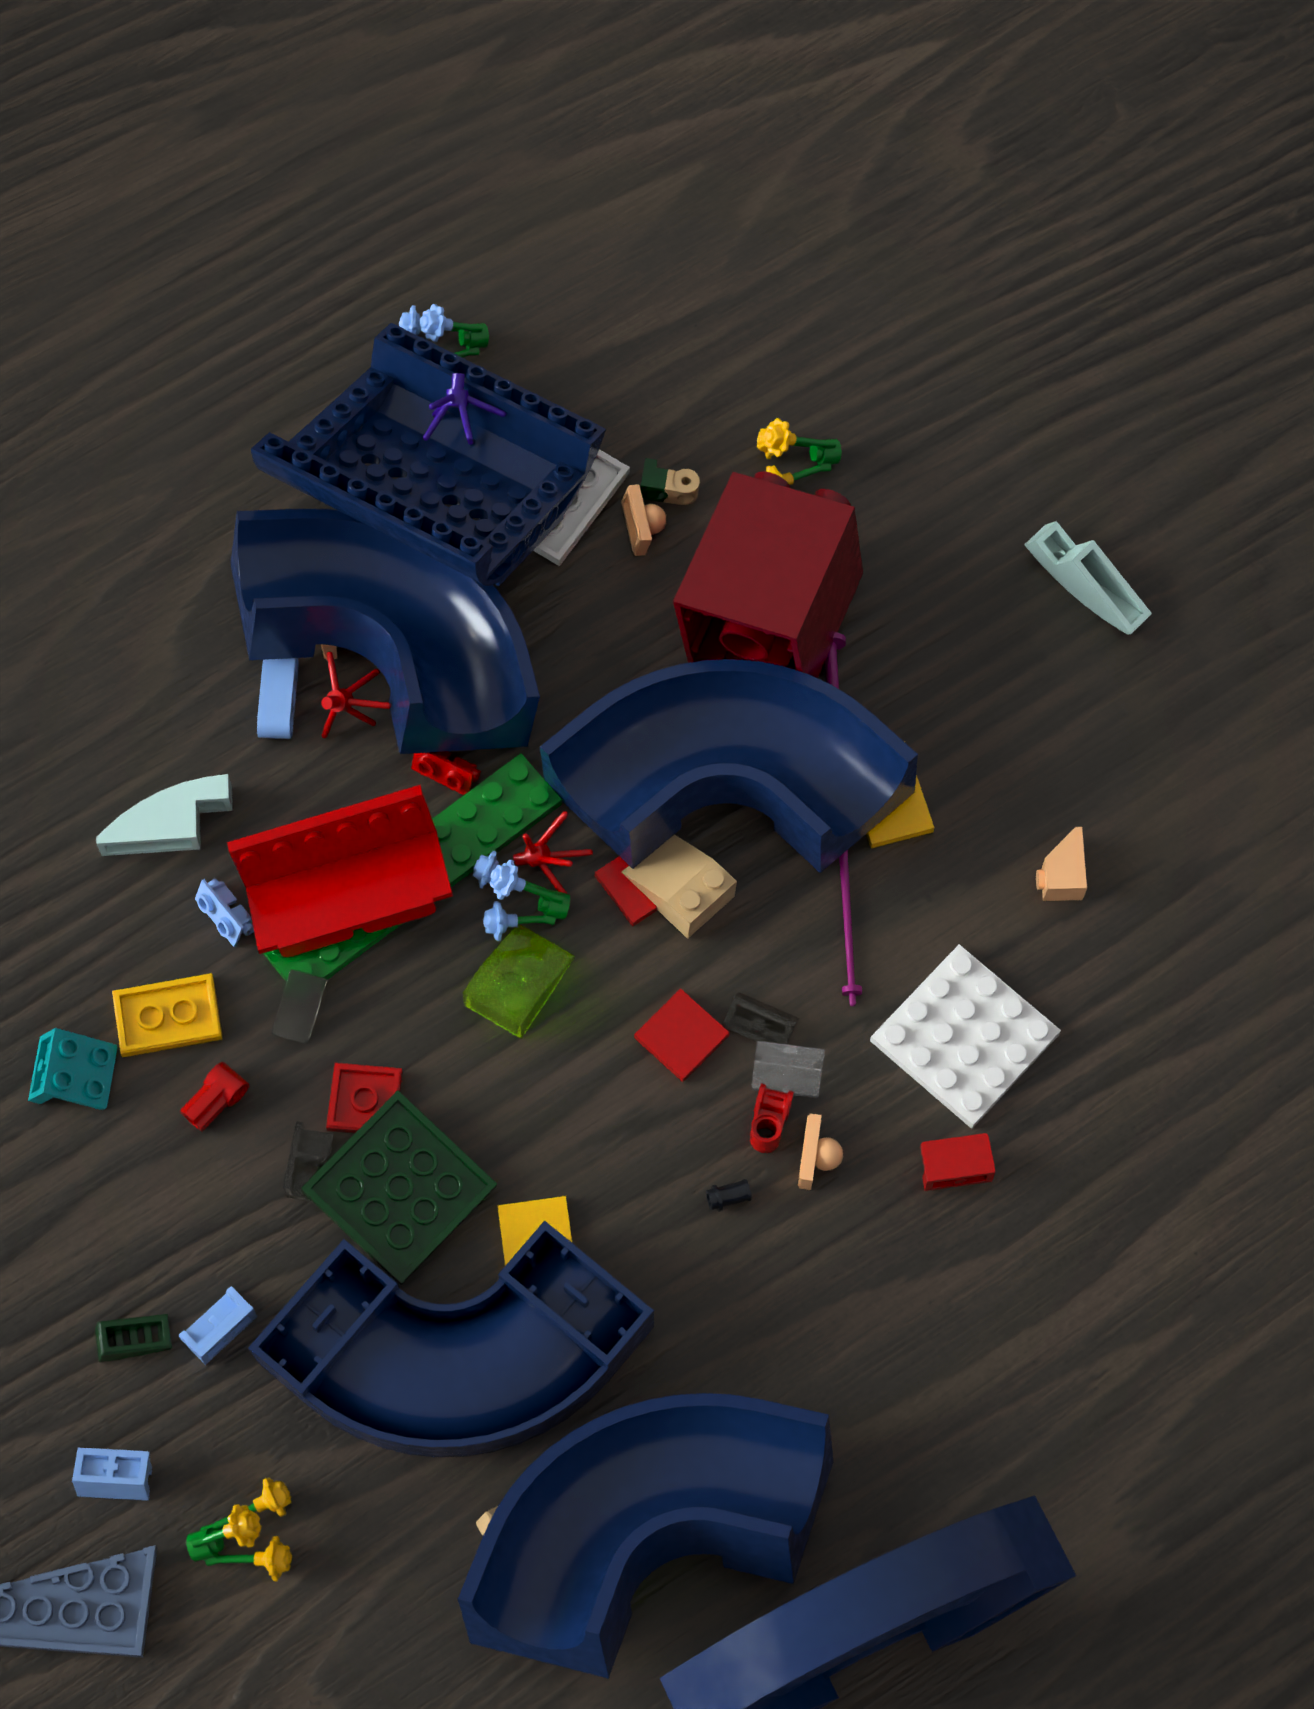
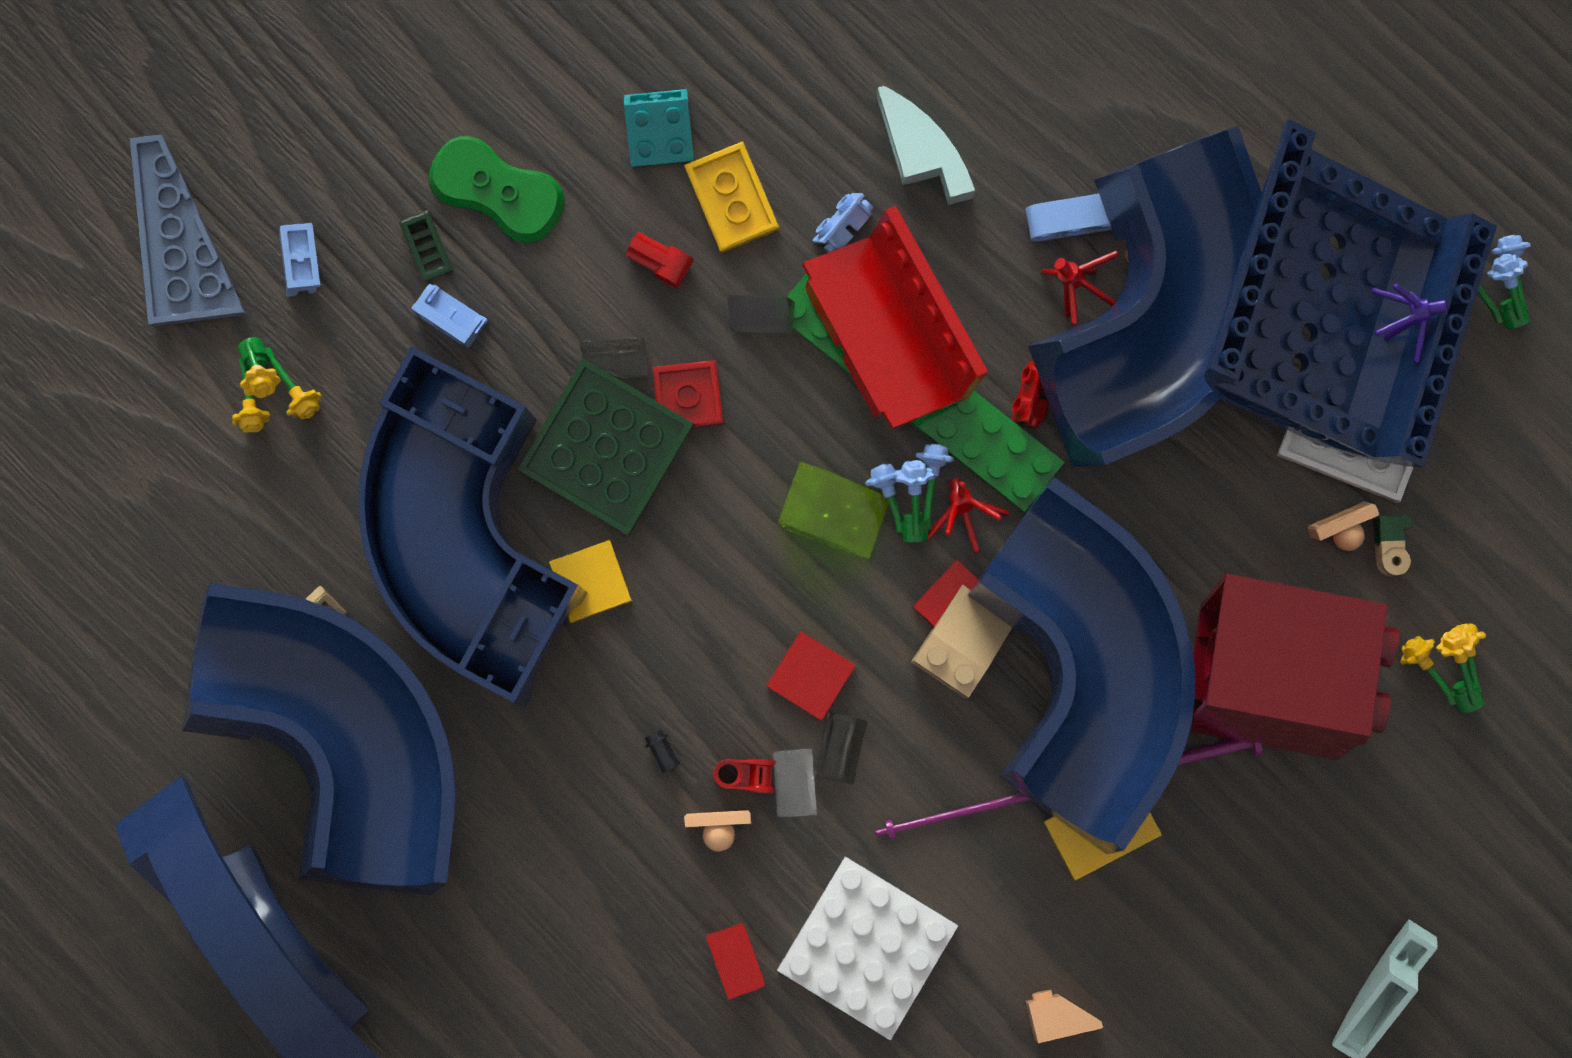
camera: 80 degrees right, 15 degrees up
(71, 1275) = (476, 178): none -> green plate

